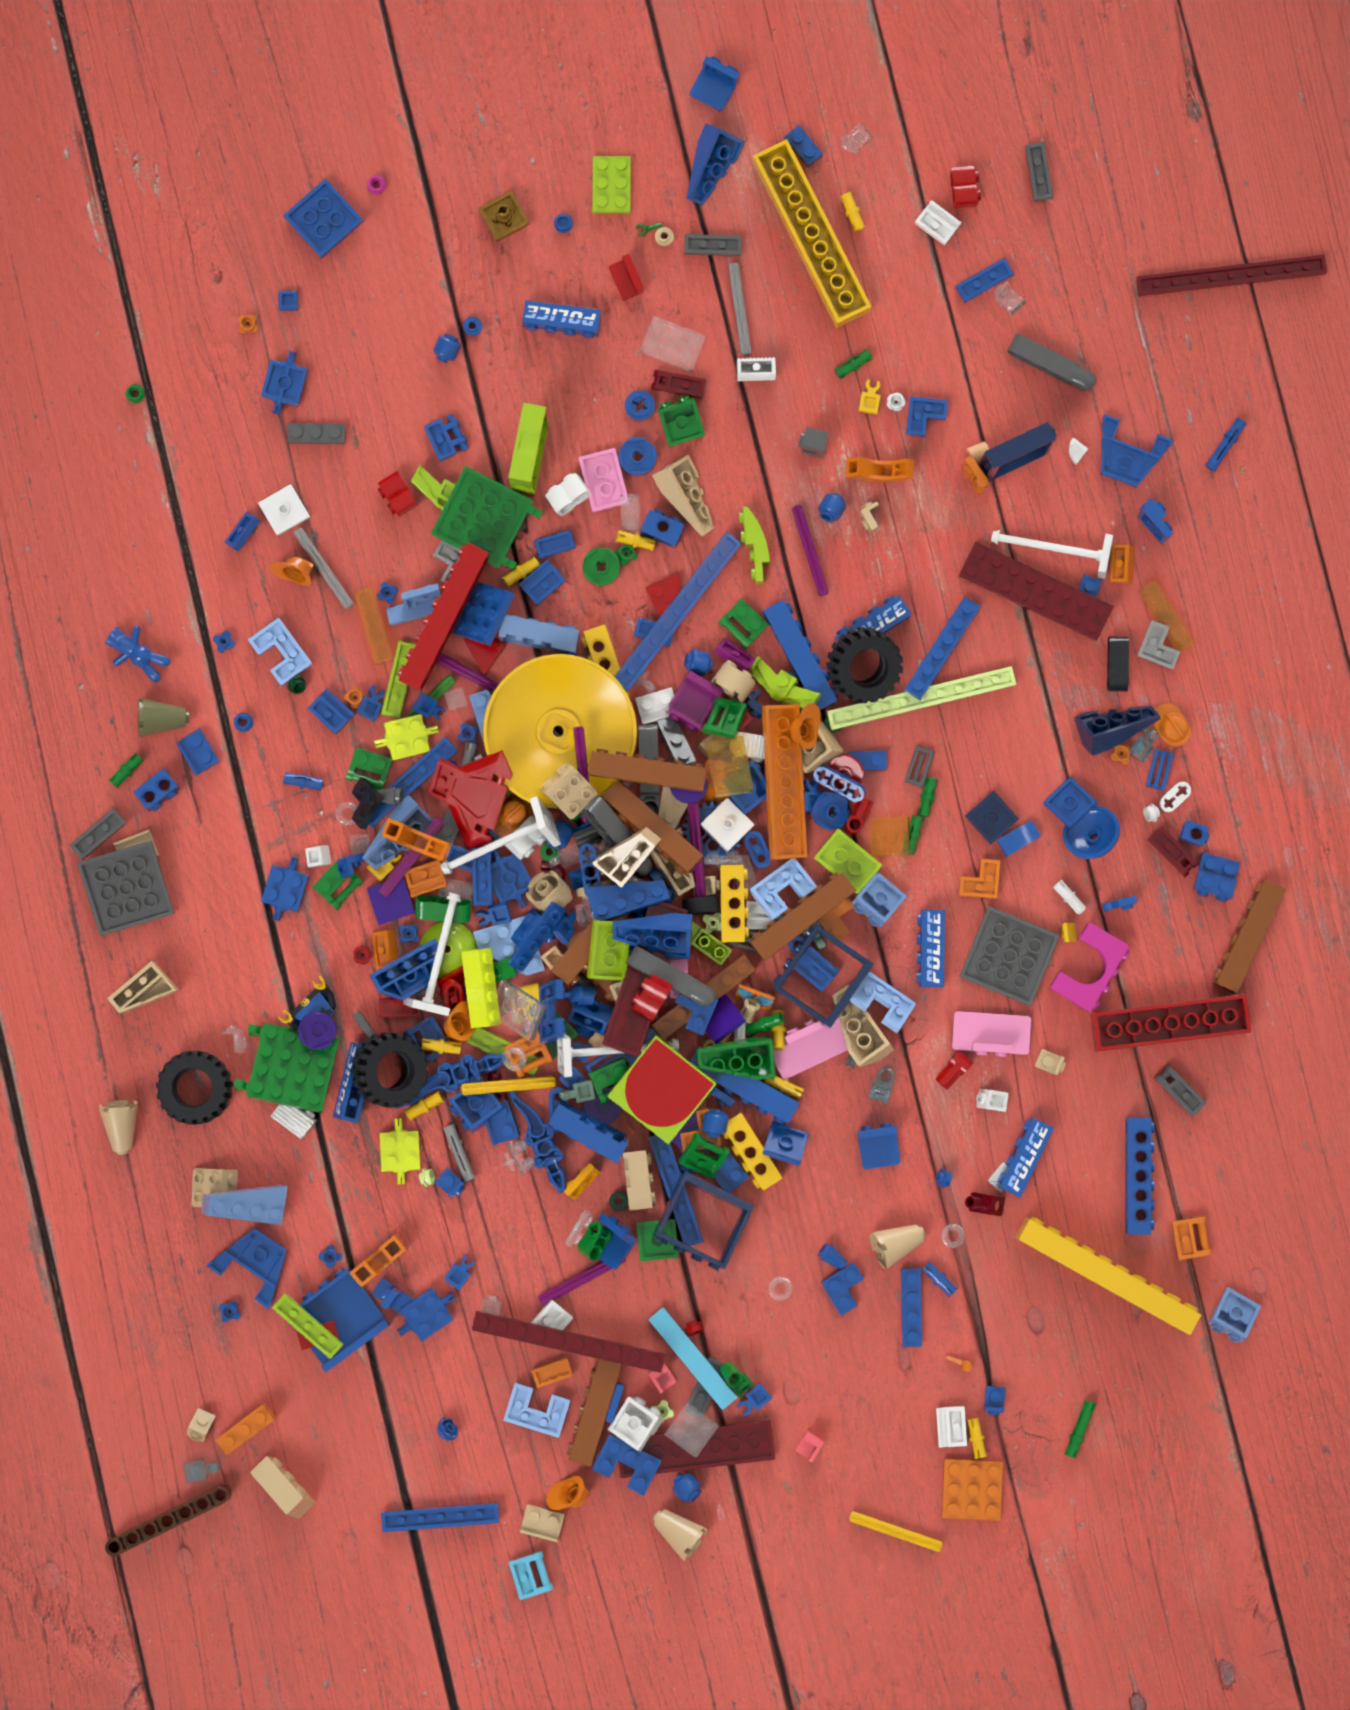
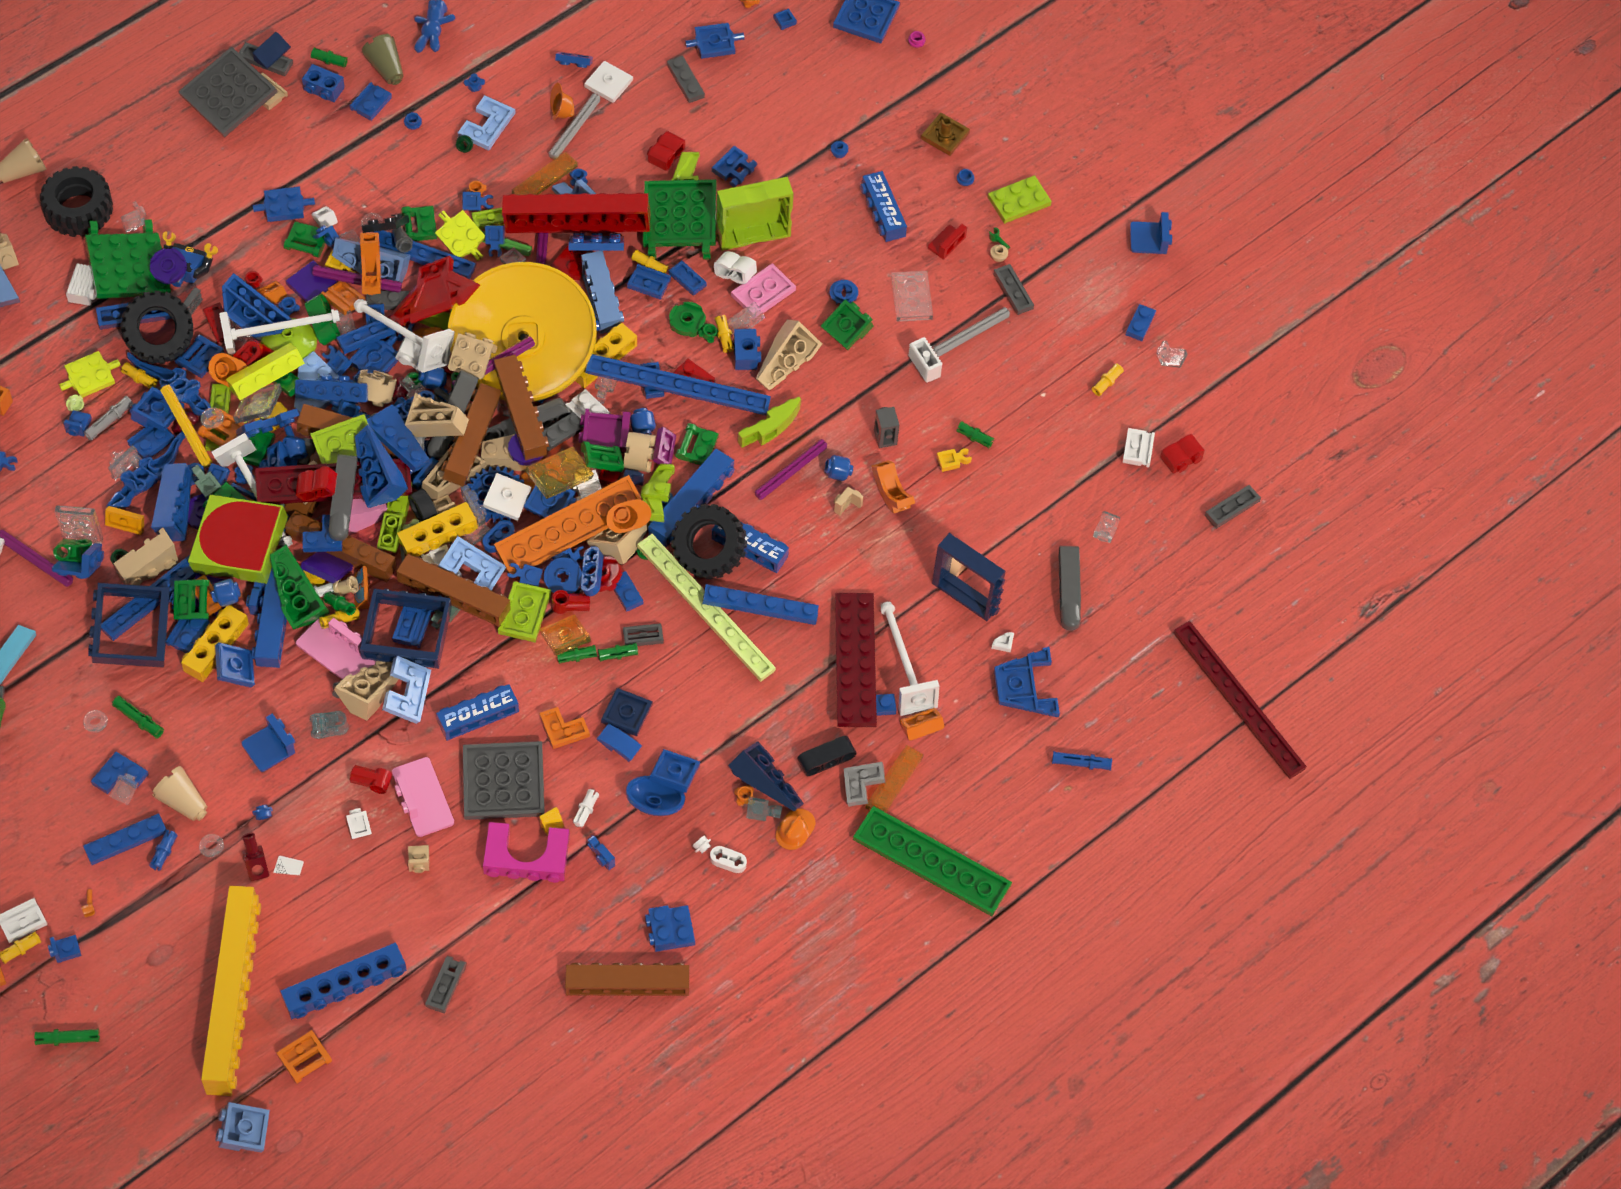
camera: 60 degrees right, 25 degrees down
(96, 825) = (271, 50): none -> dark blue slope
(143, 988) = (146, 134): tan wedge -> none
(303, 781) = (383, 180): blue pin -> none
(331, 711) = (454, 176): blue plate -> none
(441, 1046) = (198, 362): yellow pin -> none
(446, 348) = (810, 136): blue head -> none
(644, 448) = (795, 298): blue plate -> none
(648, 1246) = (84, 601): green plate -> none
(679, 384) = (879, 313): dark red plate -> none
(693, 1327) = (26, 664): red plate -> none
(696, 841) = (473, 482): magenta axle -> none
(712, 158) = (1084, 260): blue wedge -> none
(785, 1086) = (289, 646): yellow pin -> none
(802, 1245) = (143, 721): none -> green pin
(811, 233) = (1067, 354): yellow brick -> none
(812, 841) = (528, 575): none -> blue plate
(831, 1256) = (145, 748): blue cone -> none
(833, 924) = (463, 622): orange plate -> none
(865, 1289) = (124, 788): none -> clear bracket
(878, 900) = (500, 649): medium blue plate -> none
(895, 397) = (962, 476): white plate -> none
(922, 409) = (965, 502): blue plate -> none
(973, 472) = (928, 564): orange plate -> none
(984, 280) = (1106, 502): blue tile -> none
(1025, 1157) = (316, 873): blue brick -> none
(1148, 782) = (747, 828): blue tile -> none
(1152, 516) = (977, 725): blue plate -> none
(1170, 1023) = (507, 943): red brick -> none
(1172, 851) = (675, 878): dark red plate -> none
(1185, 834) = (701, 880): blue brick -> none
(1259, 623) = (932, 861): none -> green plate

